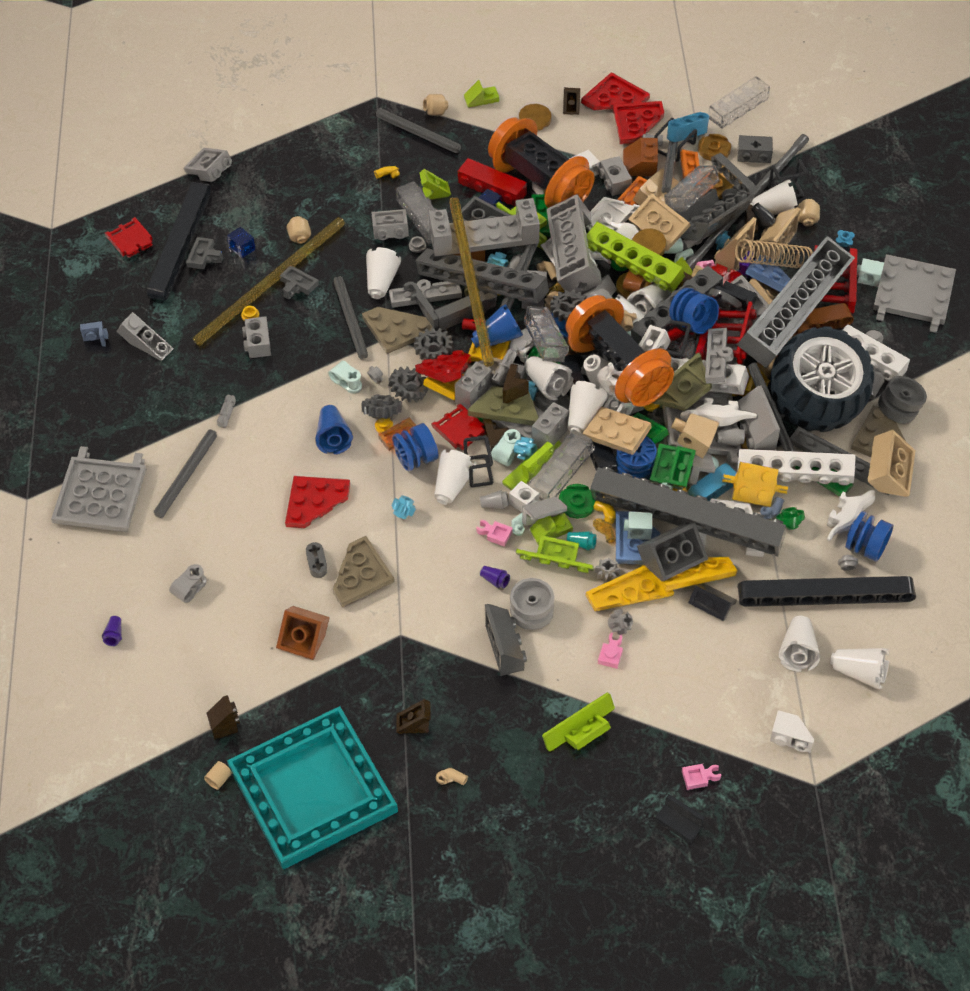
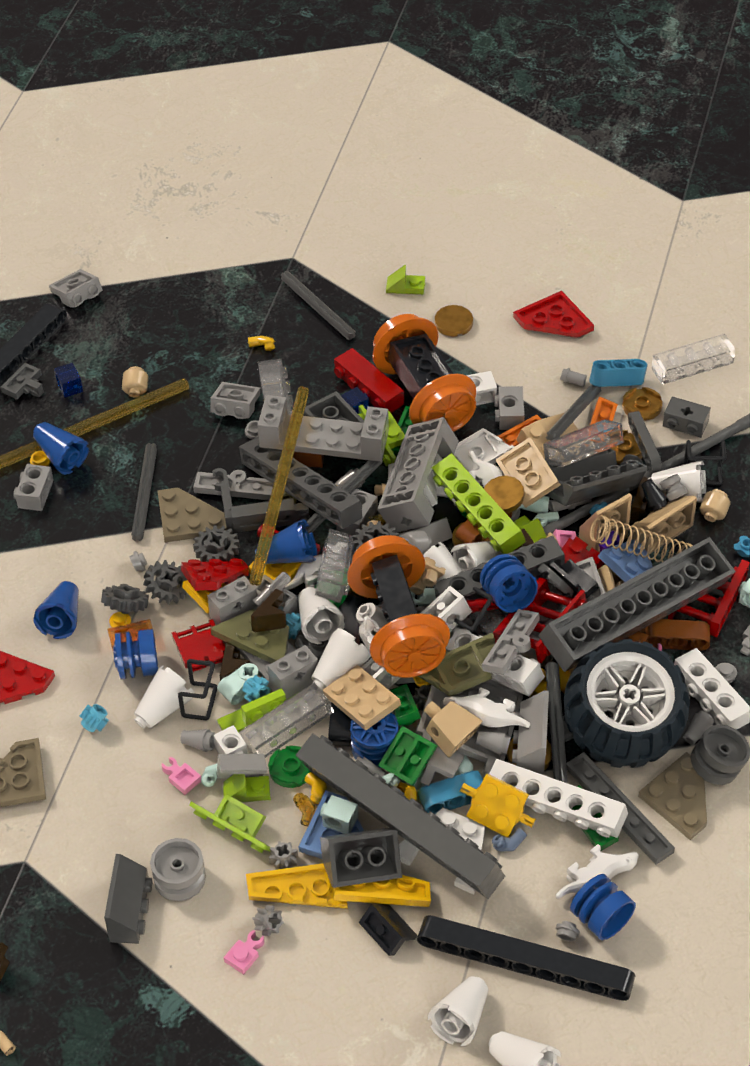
camera: 20 degrees right, 5 degrees down
(265, 297) = (61, 447): none -> blue cone
(297, 281) = (106, 437): dark grey hinge -> none
(346, 377) = (106, 556): light aqua piece -> none
(381, 270) = (197, 449): white cone -> none
(434, 186) = (304, 370): lime slope -> none
(435, 104) = (348, 281): tan head -> none
(495, 576) = (156, 826): dark purple cone -> none
(498, 259) = (331, 470): medium azure gear -> none
(571, 101) = (500, 311): dark brown slope -> none
(581, 726) = (167, 1028): lime bracket -> none
(586, 539) = (275, 813): teal cone -> none
(636, 119) = (566, 350): red plate -> none
(641, 157) = (550, 395): dark orange slope -> none
(687, 139) = (592, 406): black piece -> none
(776, 205) = (673, 487): none -> light grey wheel
(791, 517) = (523, 857): green plate -> none
(891, 464) = (670, 829): tan slope -> none

